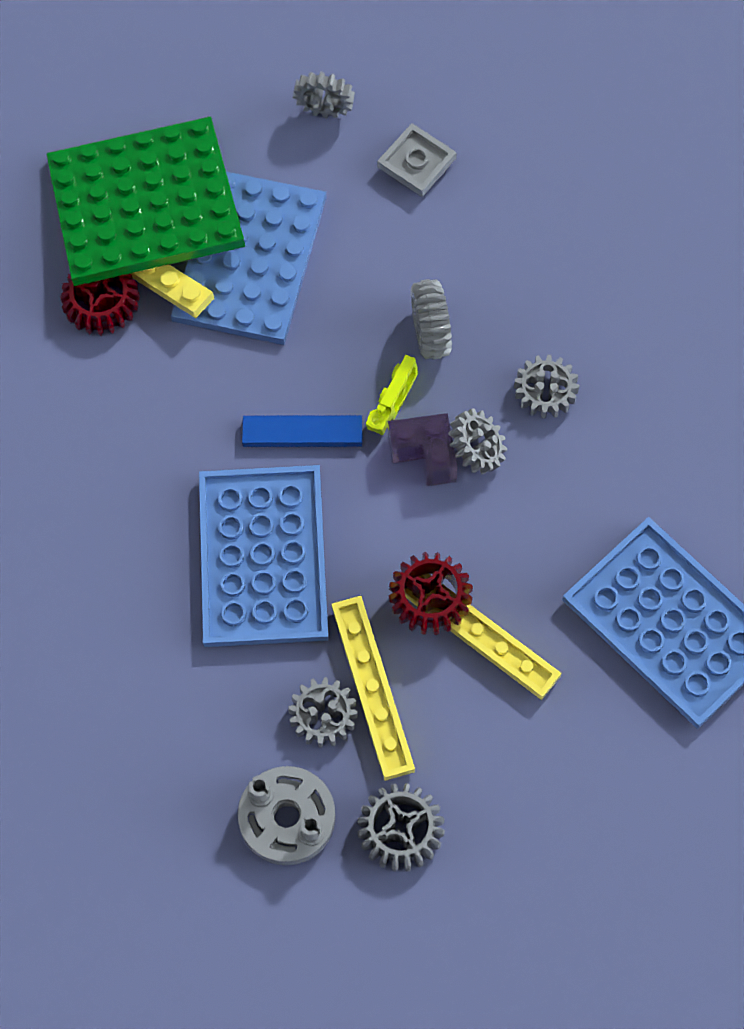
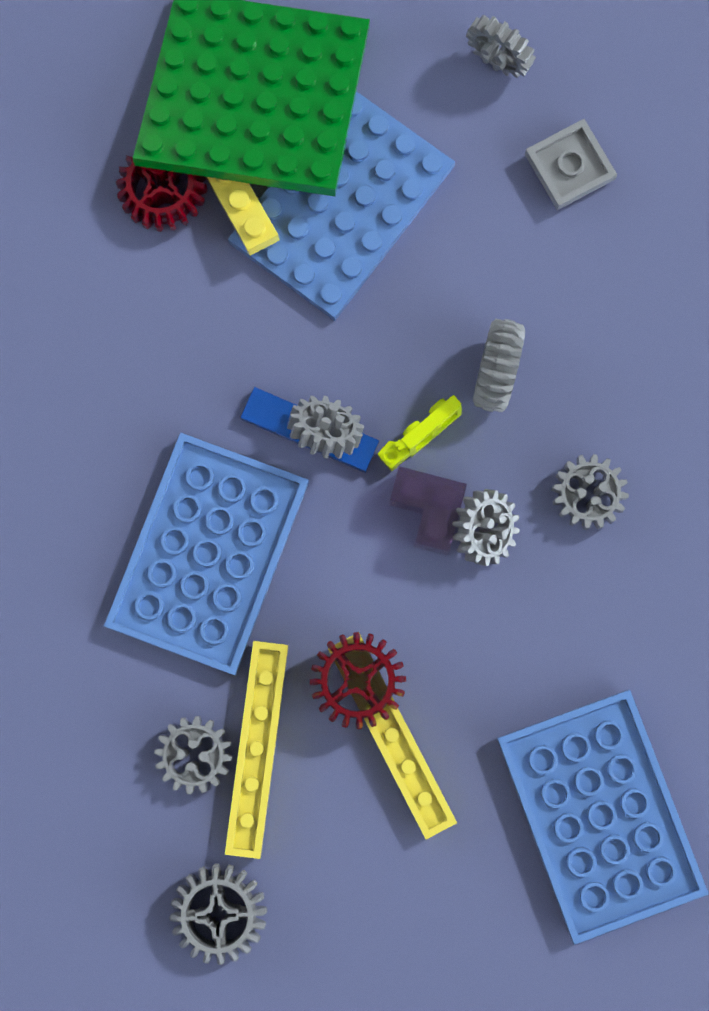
camera: 25 degrees right, 15 degrees up
(266, 797) = (117, 879): light grey piece -> none
(315, 417) = (325, 427): none -> light grey gear

